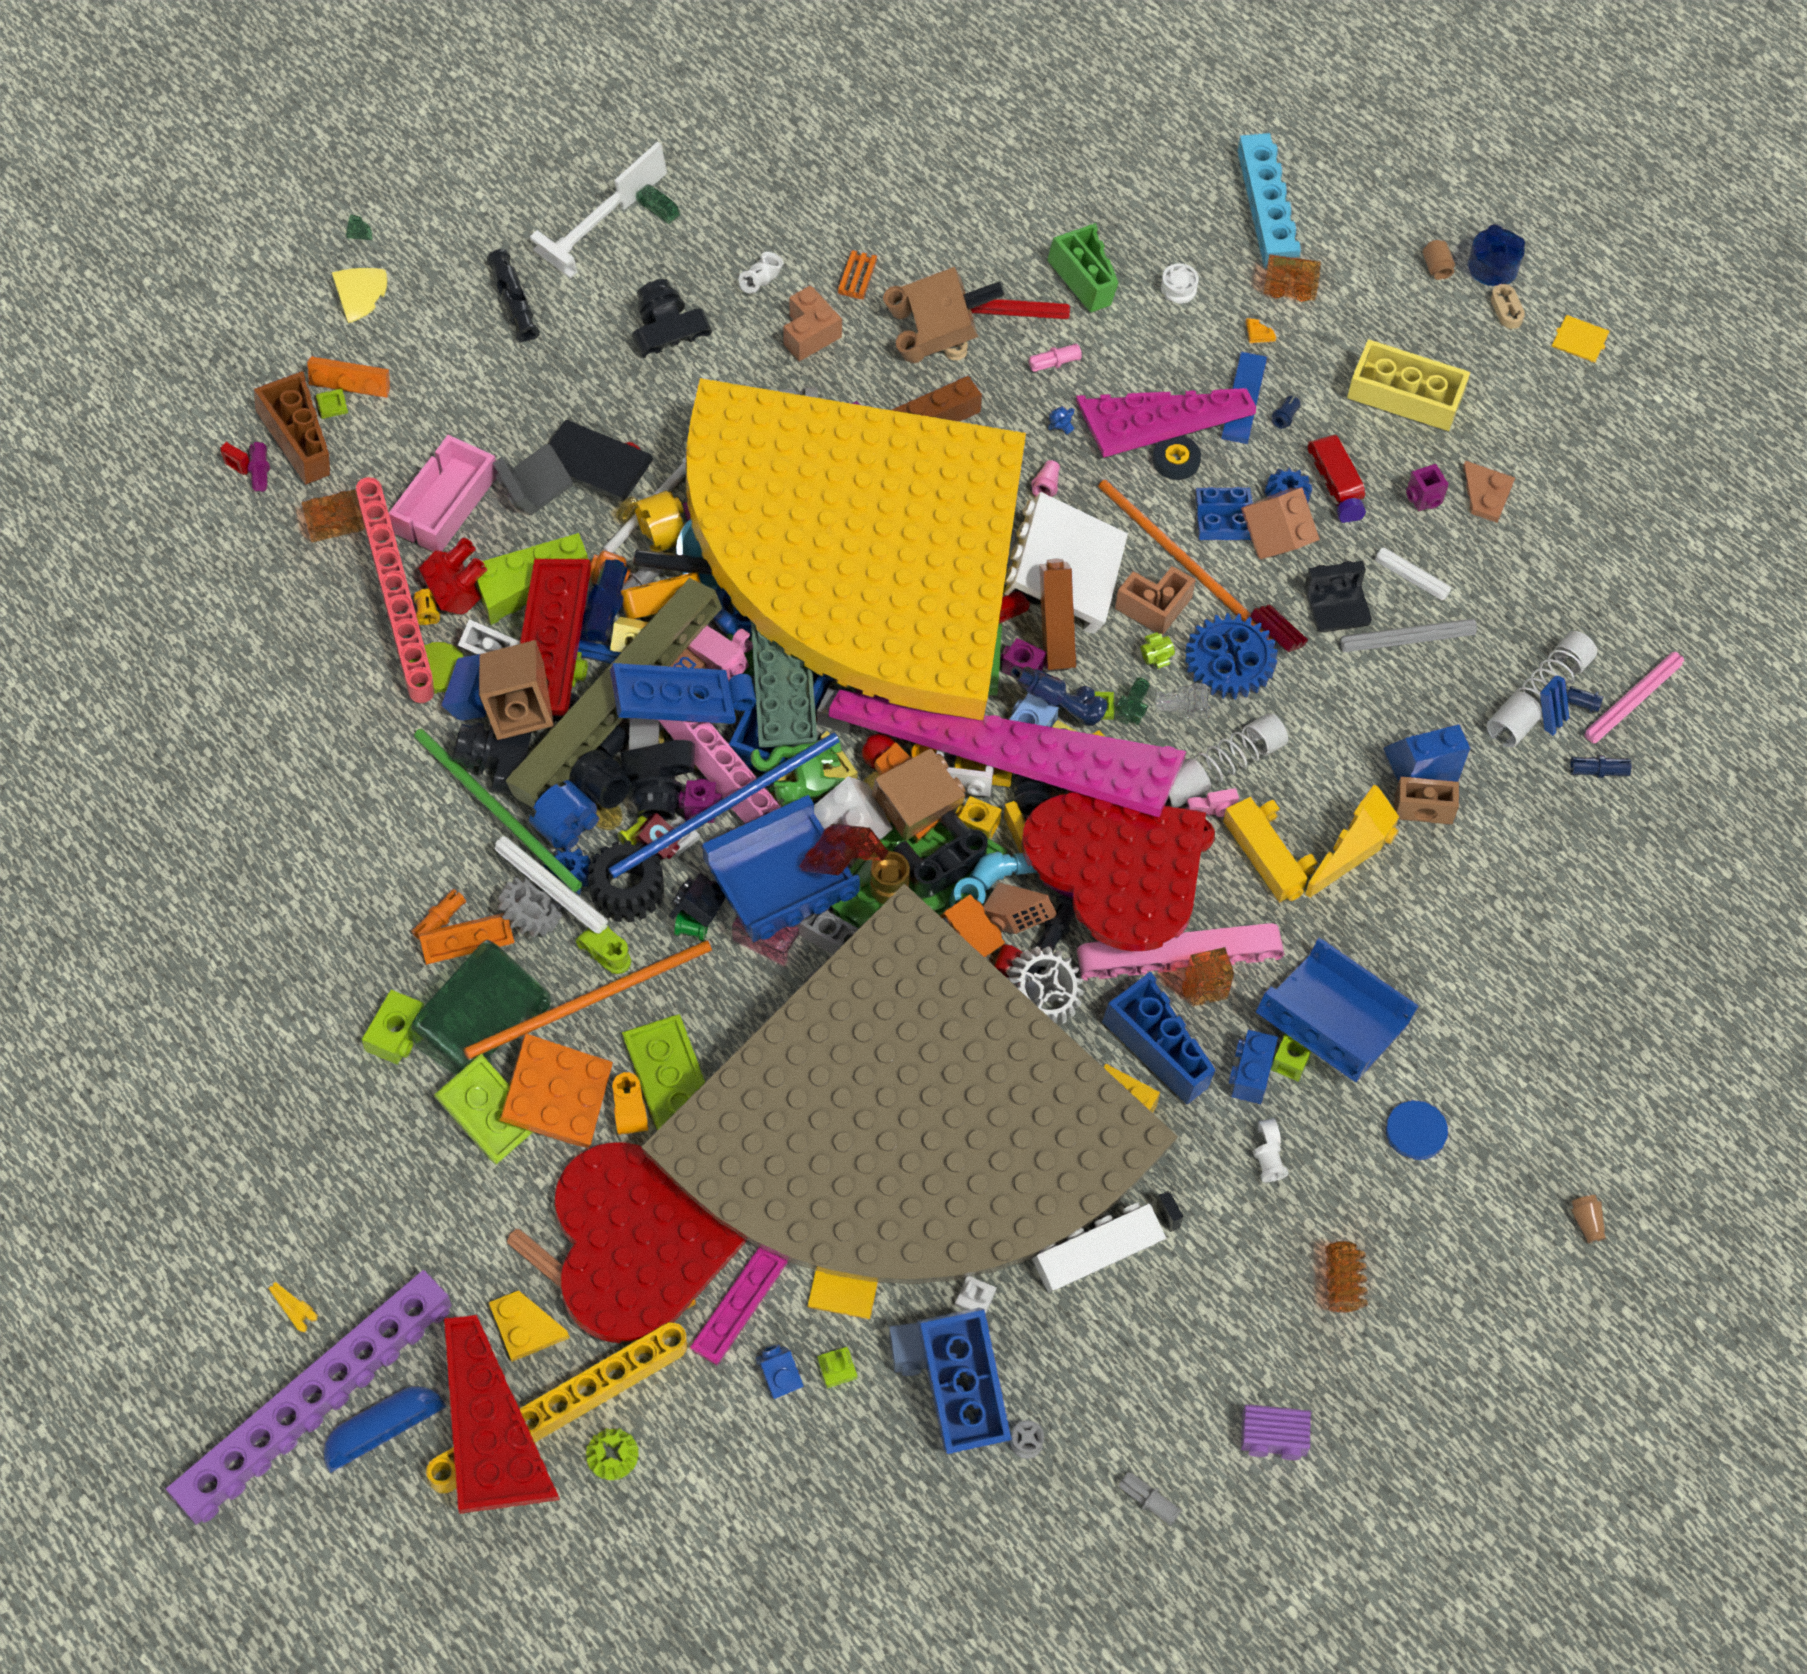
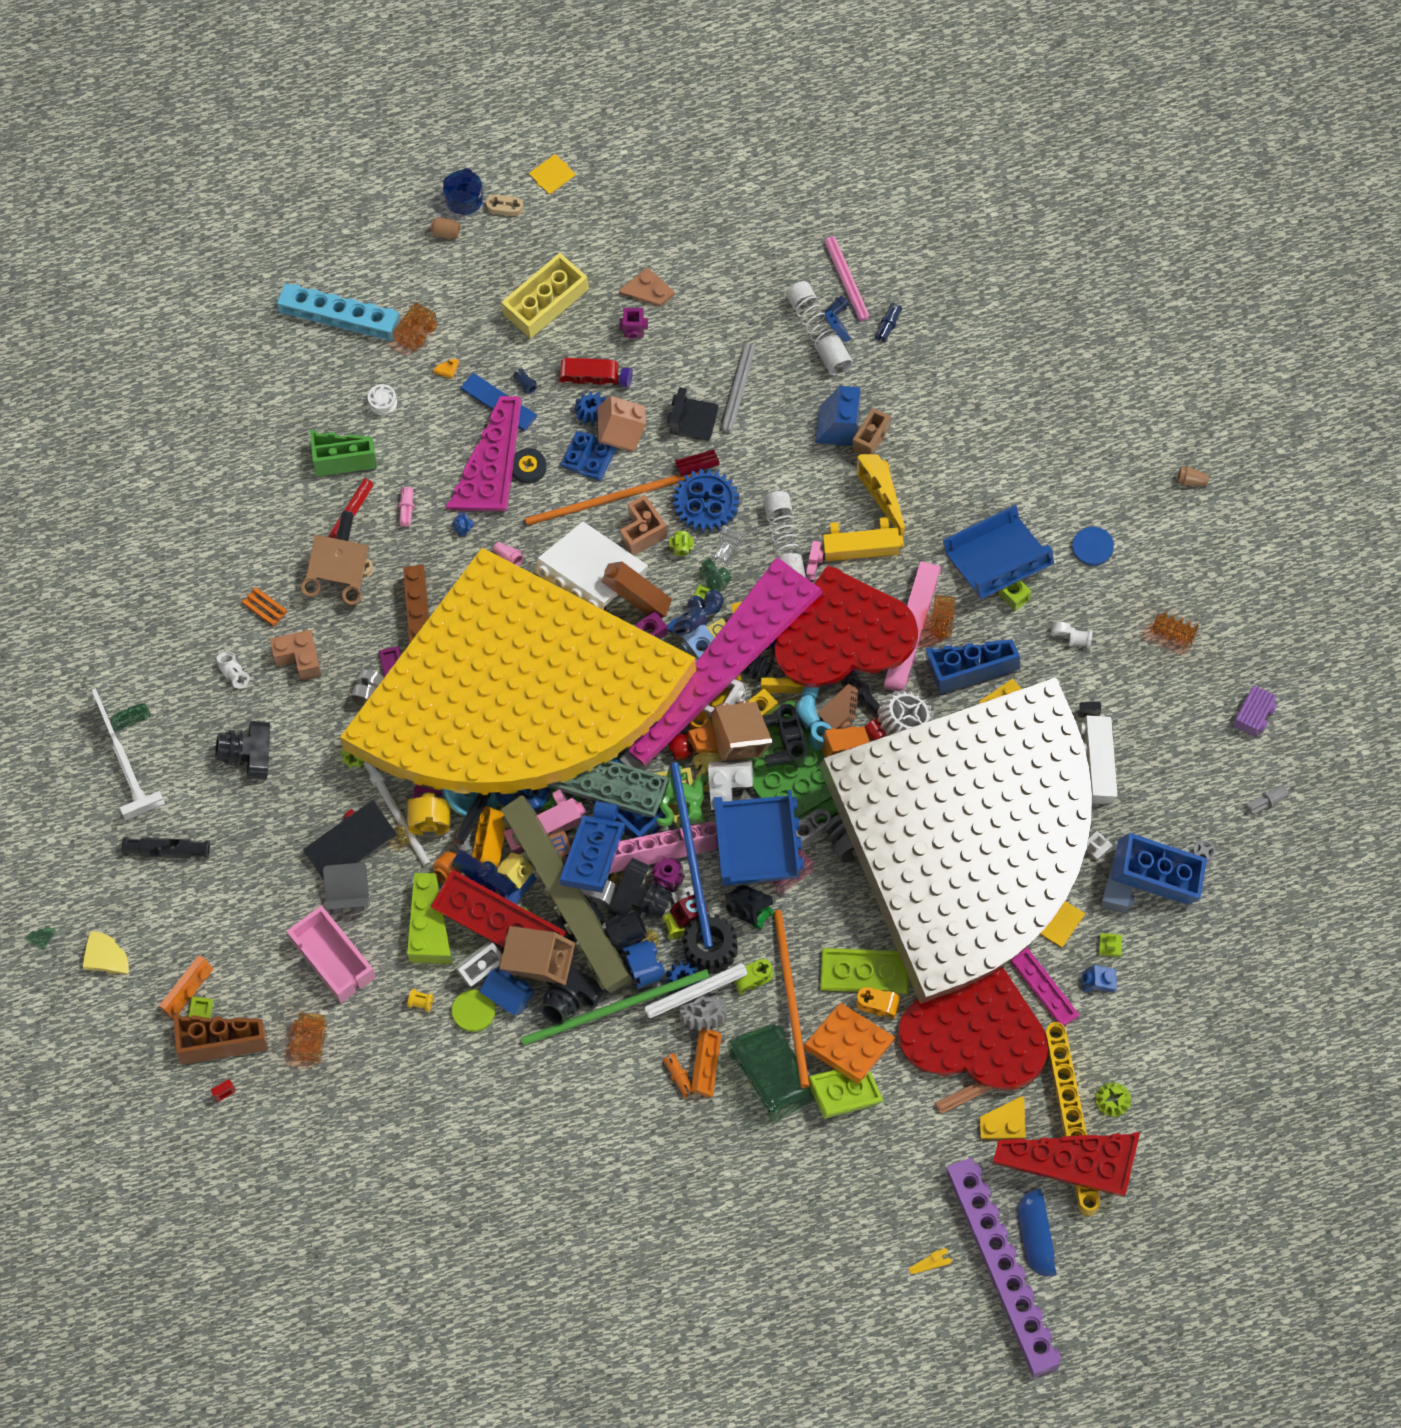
camera: 60 degrees left, 5 degrees up
(258, 466) = (237, 1077): magenta axle -> none
(395, 1011) = (758, 1142): lime brick -> none
(398, 599) = (412, 1019): coral beam -> none
(450, 580) = (410, 974): red brick -> none
(839, 846) = (765, 794): clear red bracket -> none
(888, 876) = (788, 775): pearl gold wheel -> none
(1254, 1066) = (1013, 618): blue brick -> none
(1413, 573) = (692, 363): white axle -> none

